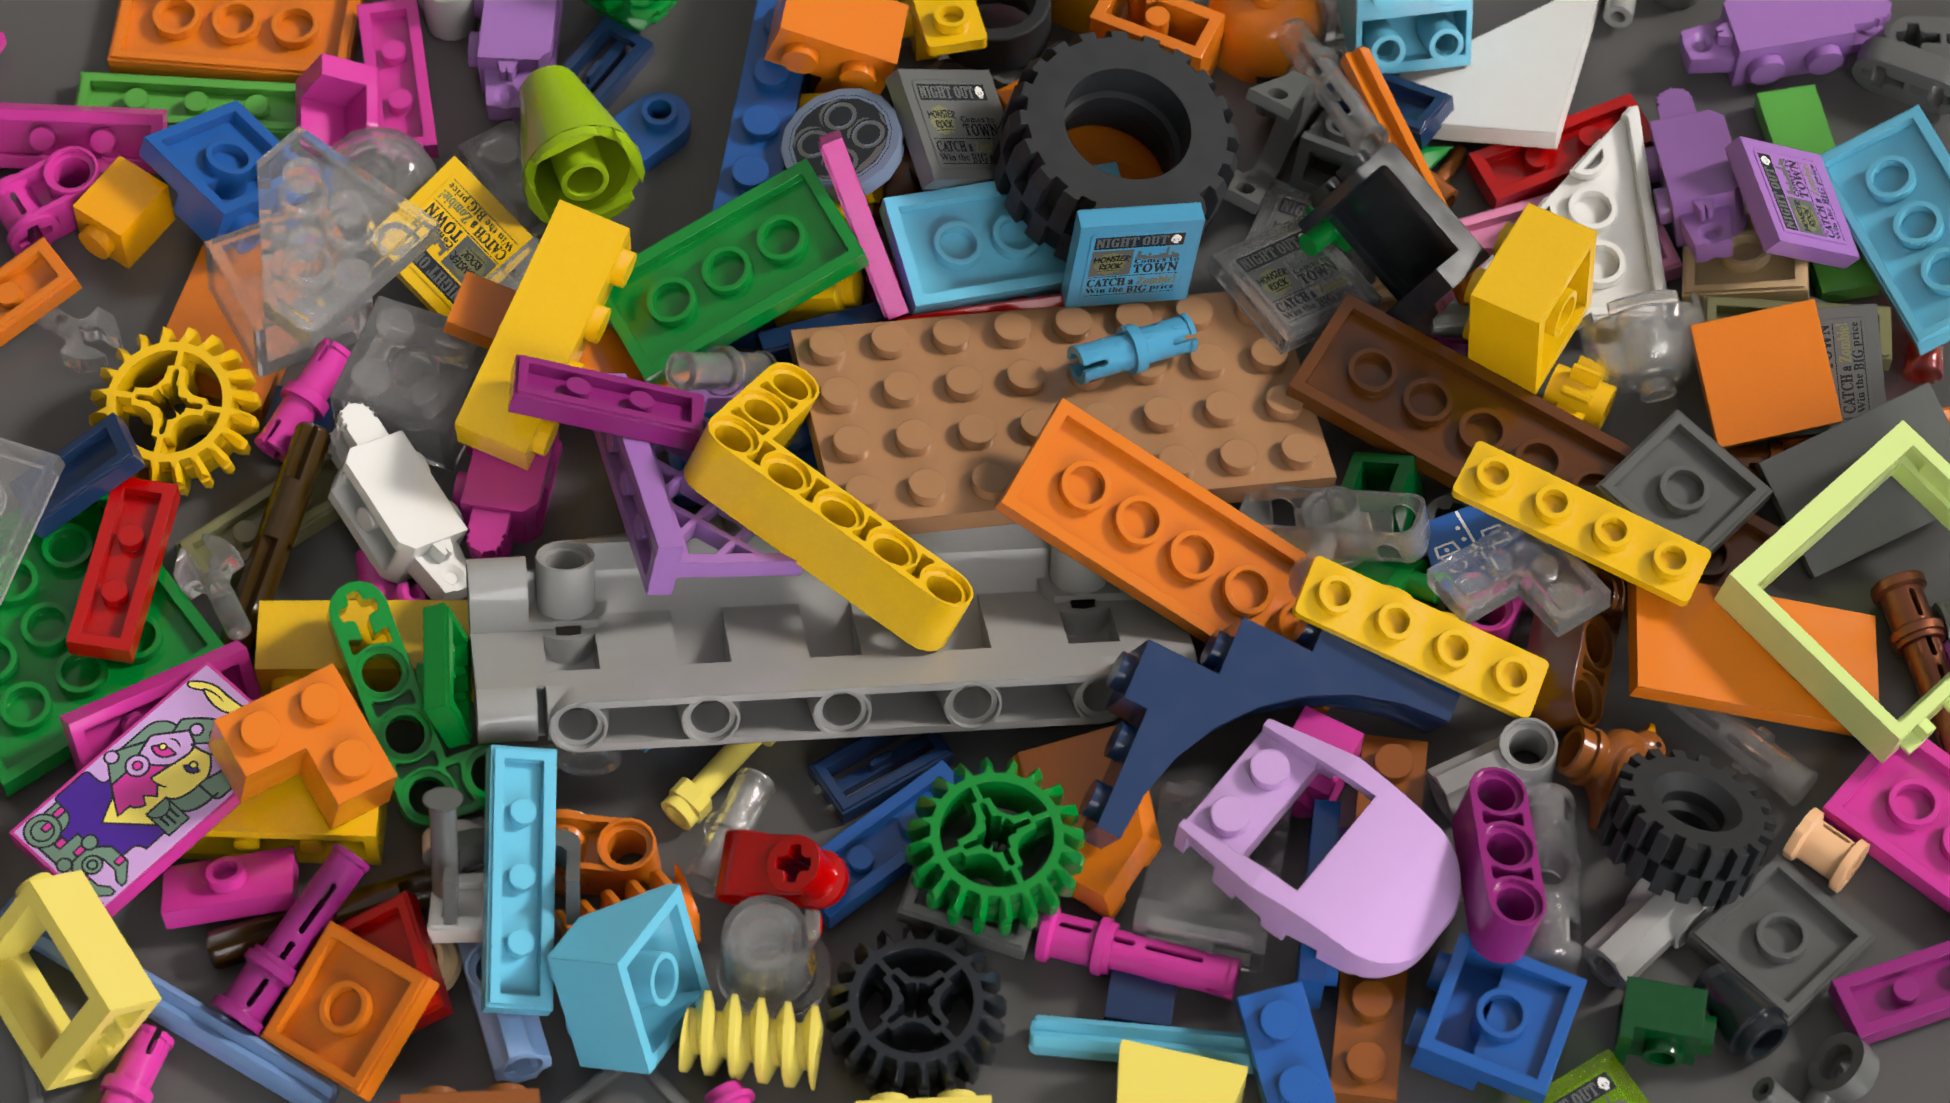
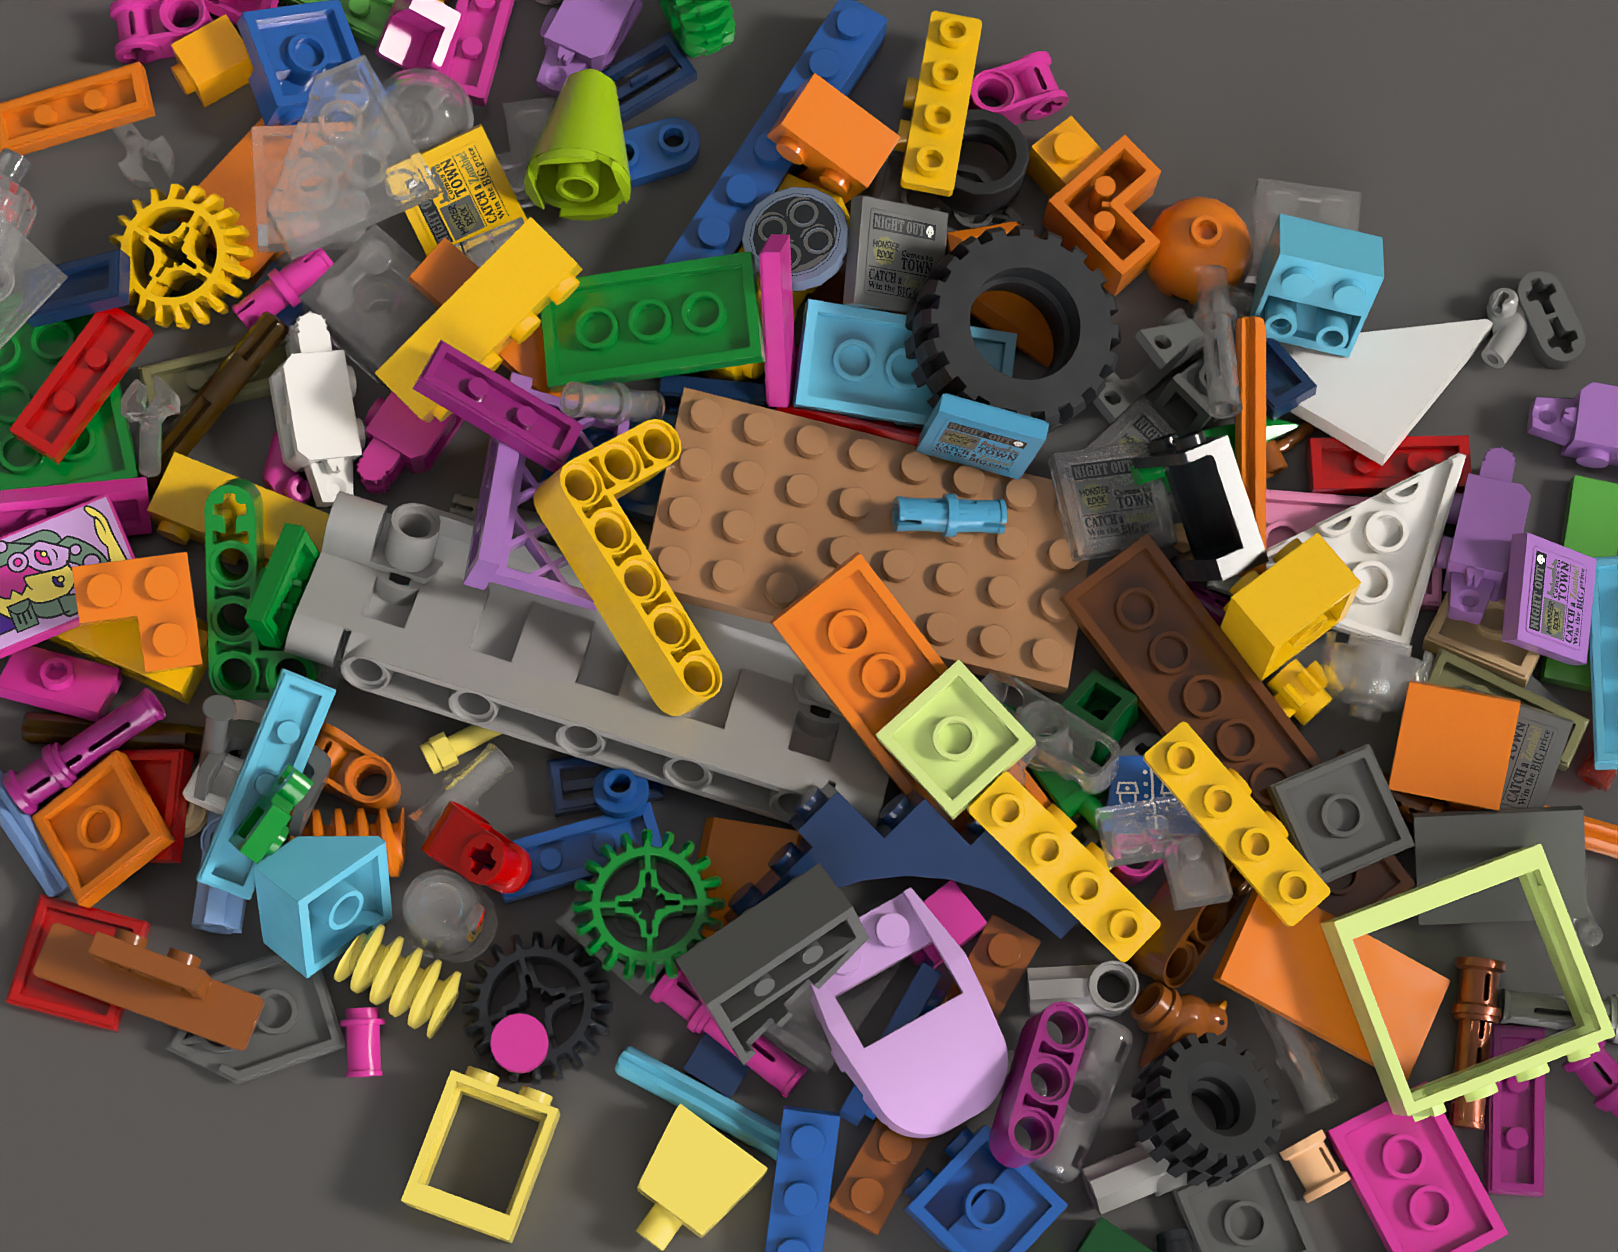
camera: 15 degrees right, 15 degrees up
(541, 908) = (265, 824): none -> green plate
(907, 758) = (622, 804): none -> blue plate
(918, 1041) = (519, 1043): none -> dark pink tile
(1153, 831) = (771, 956): none -> dark grey wedge
(1247, 549) = (955, 739): none -> yellowish green plate

